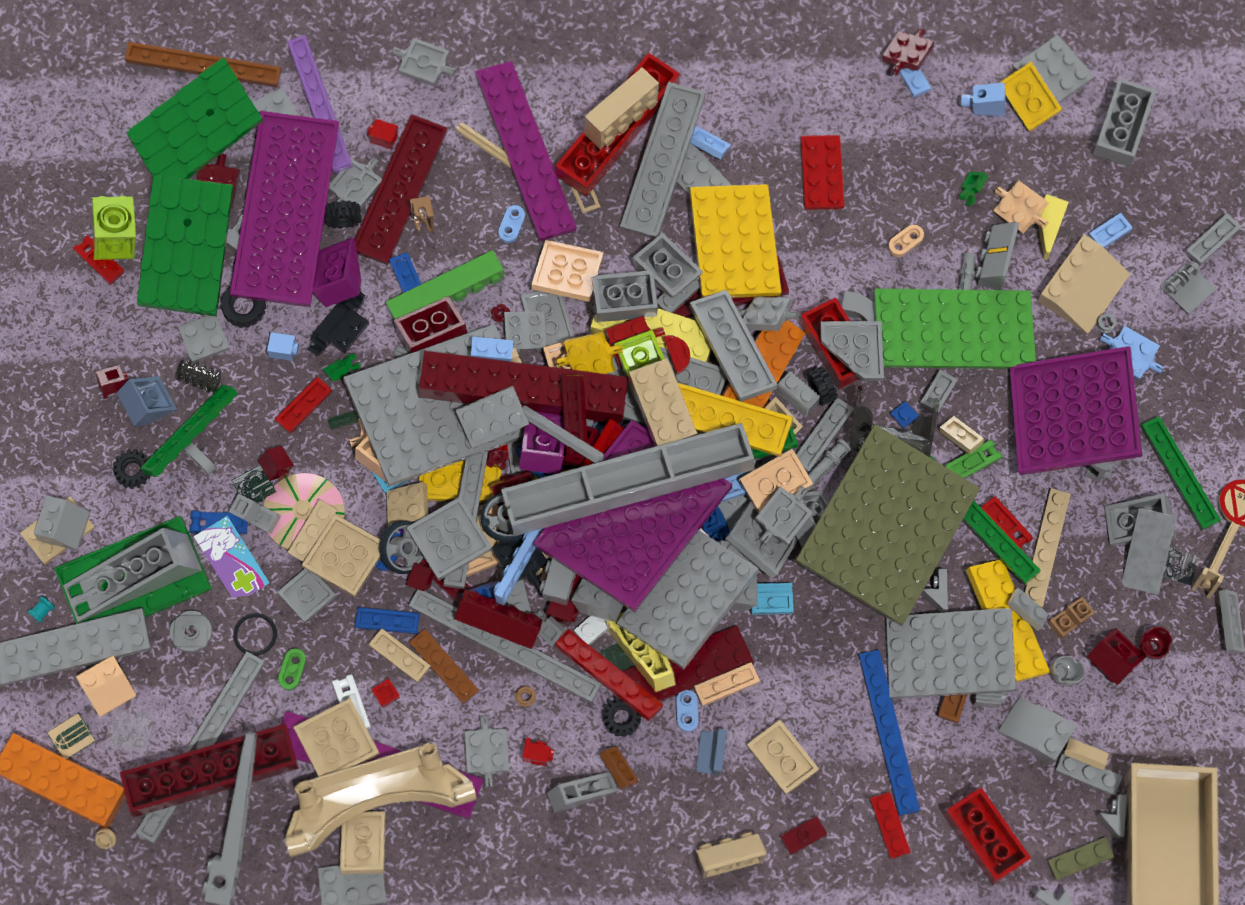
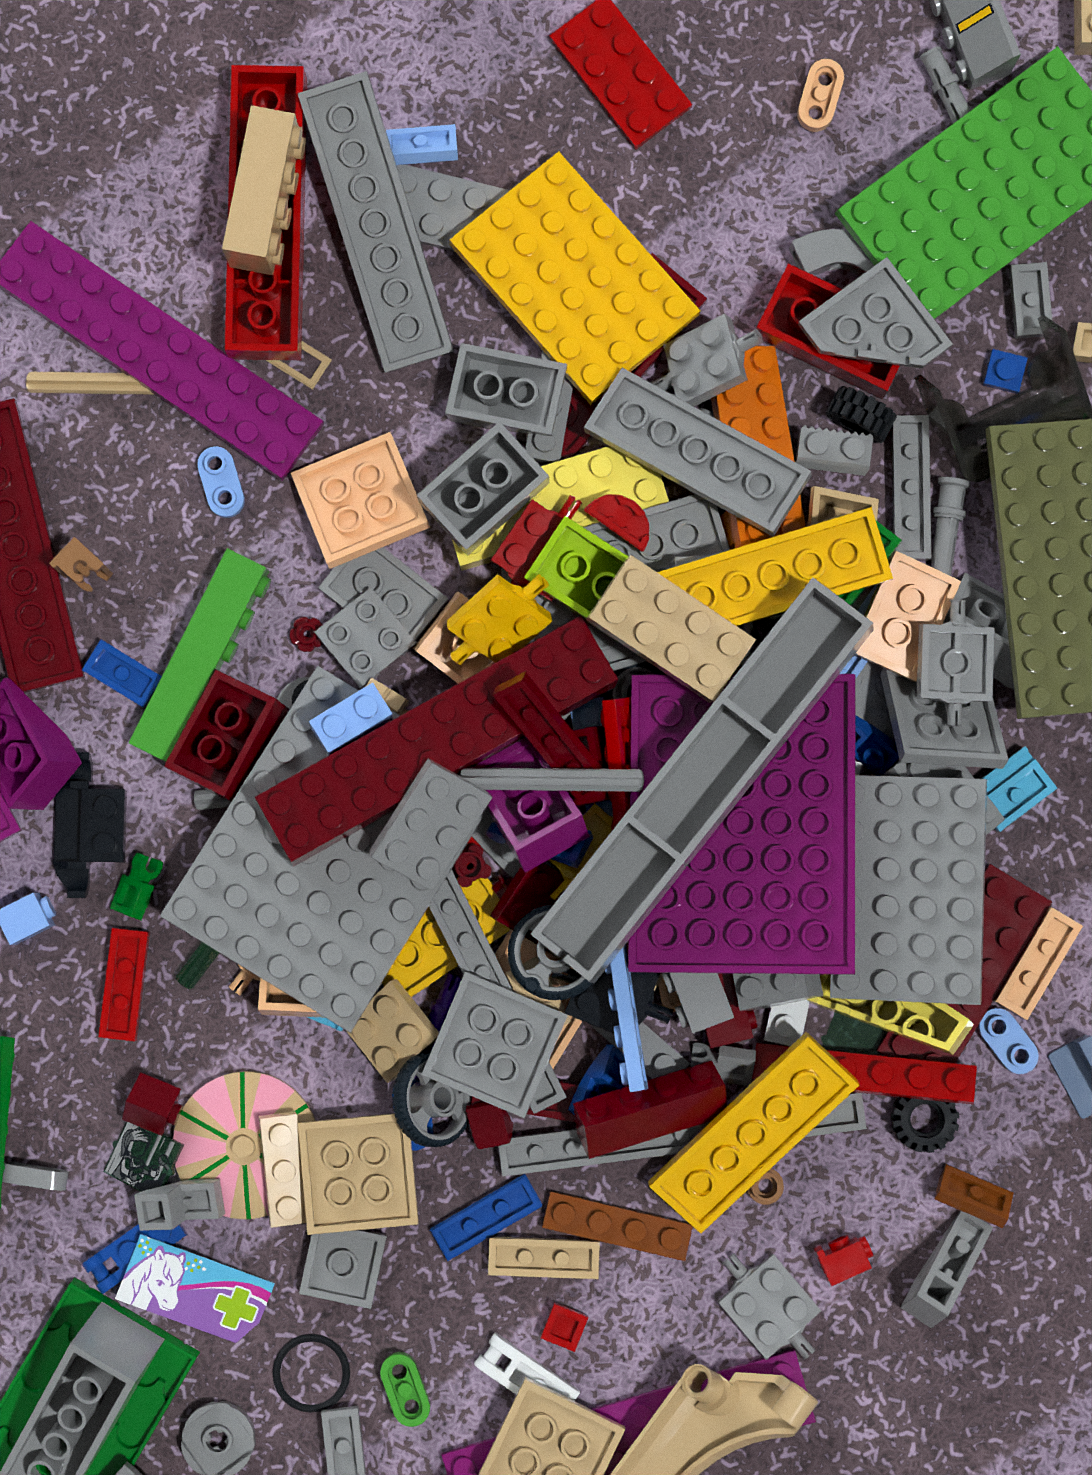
camera: 30 degrees left, 15 degrees up
(537, 662) = (753, 1132): none -> yellow plate

